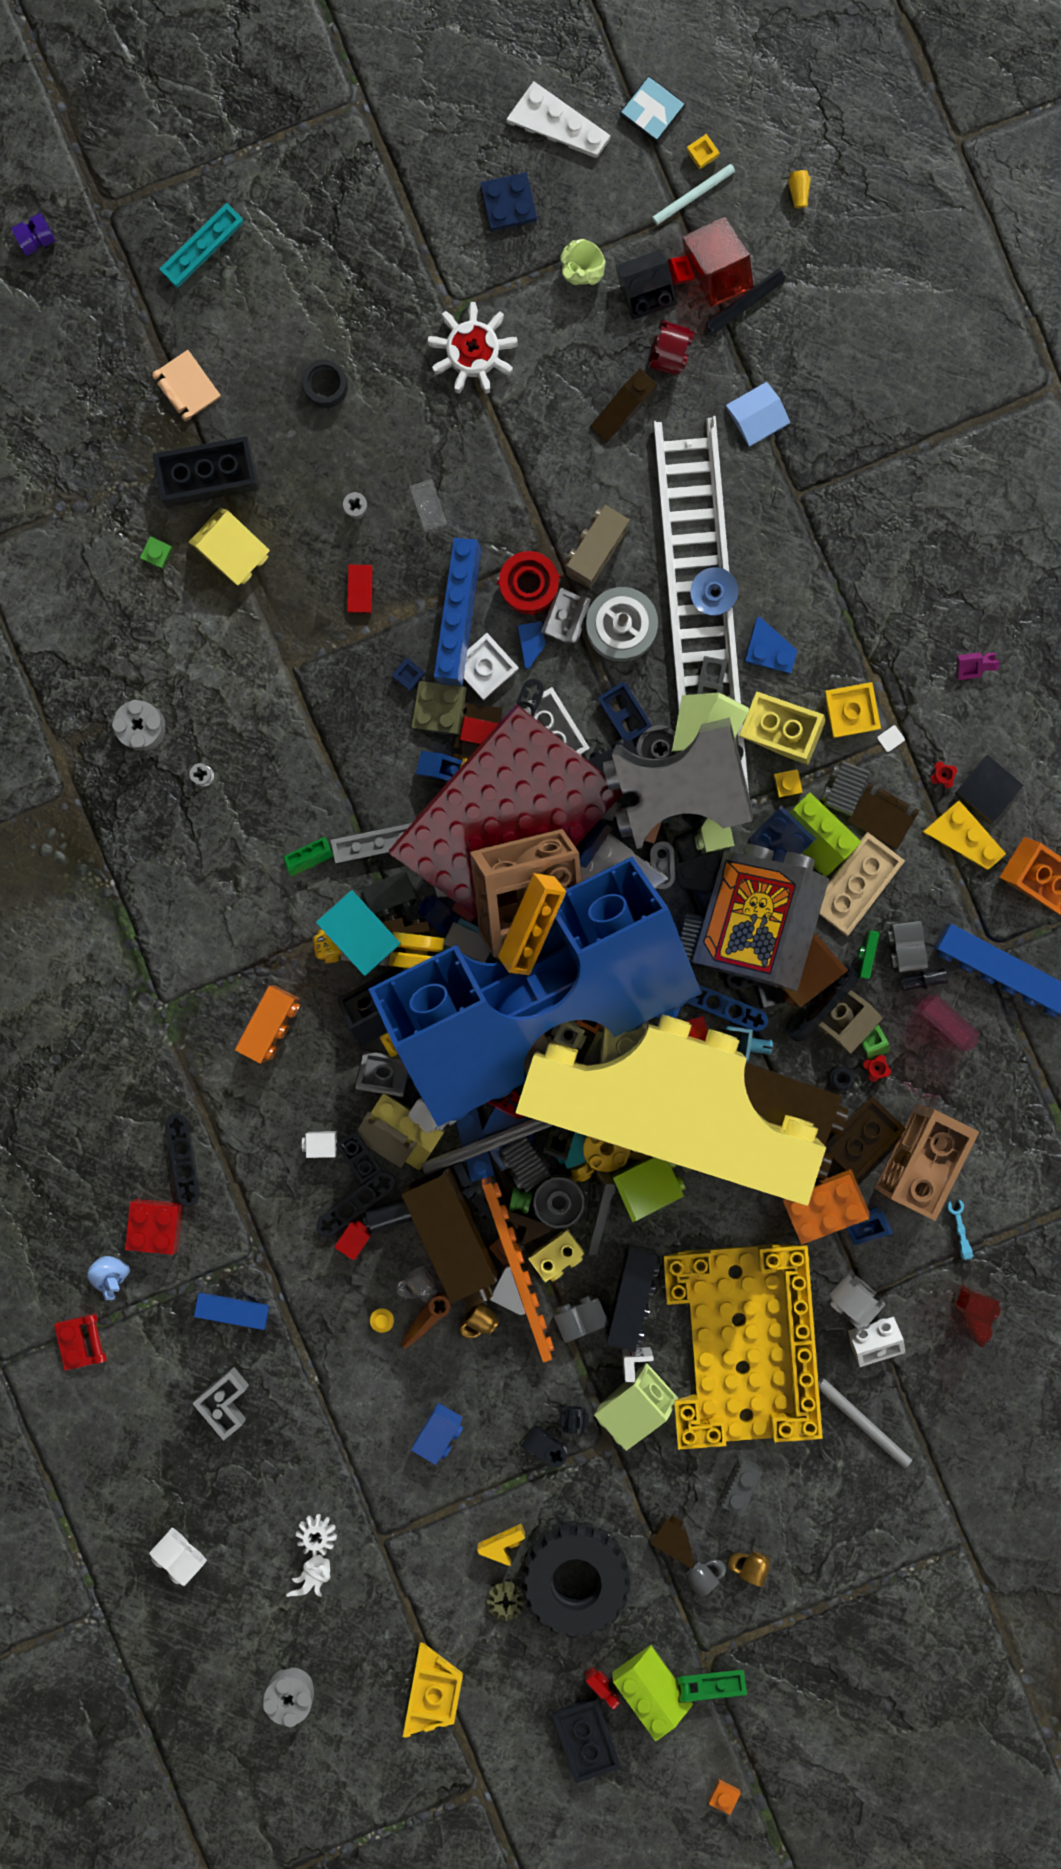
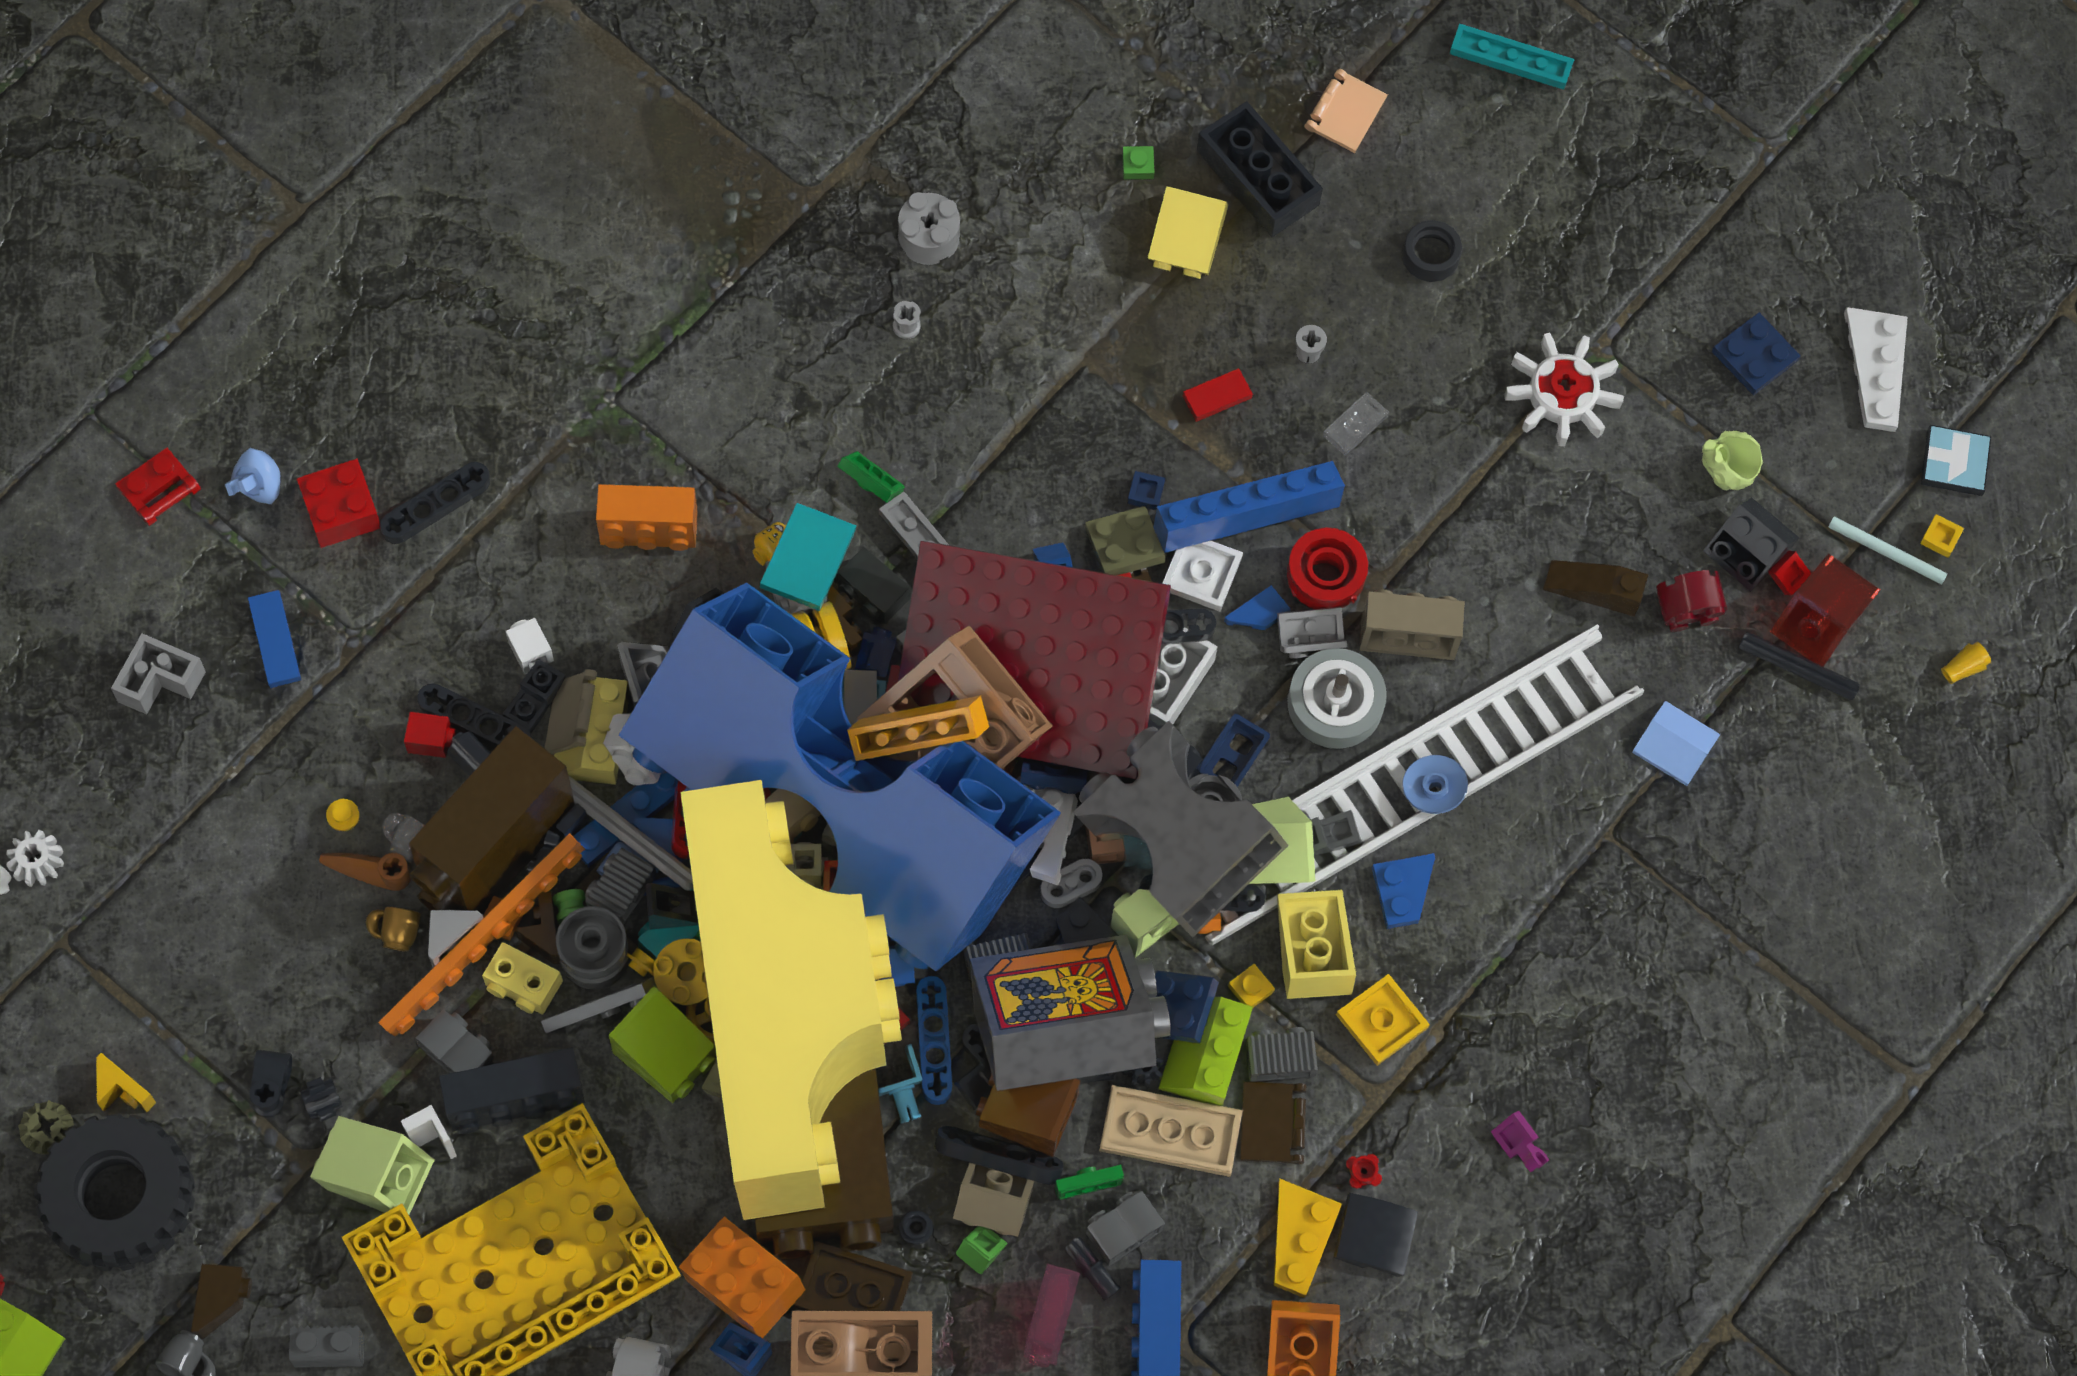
camera: 55 degrees right, 20 degrees down
(437, 1433) = (229, 941): blue brick -> none
(883, 1068) = (951, 1275): red plate -> none
(891, 738) = (1374, 1087): white sticker -> none

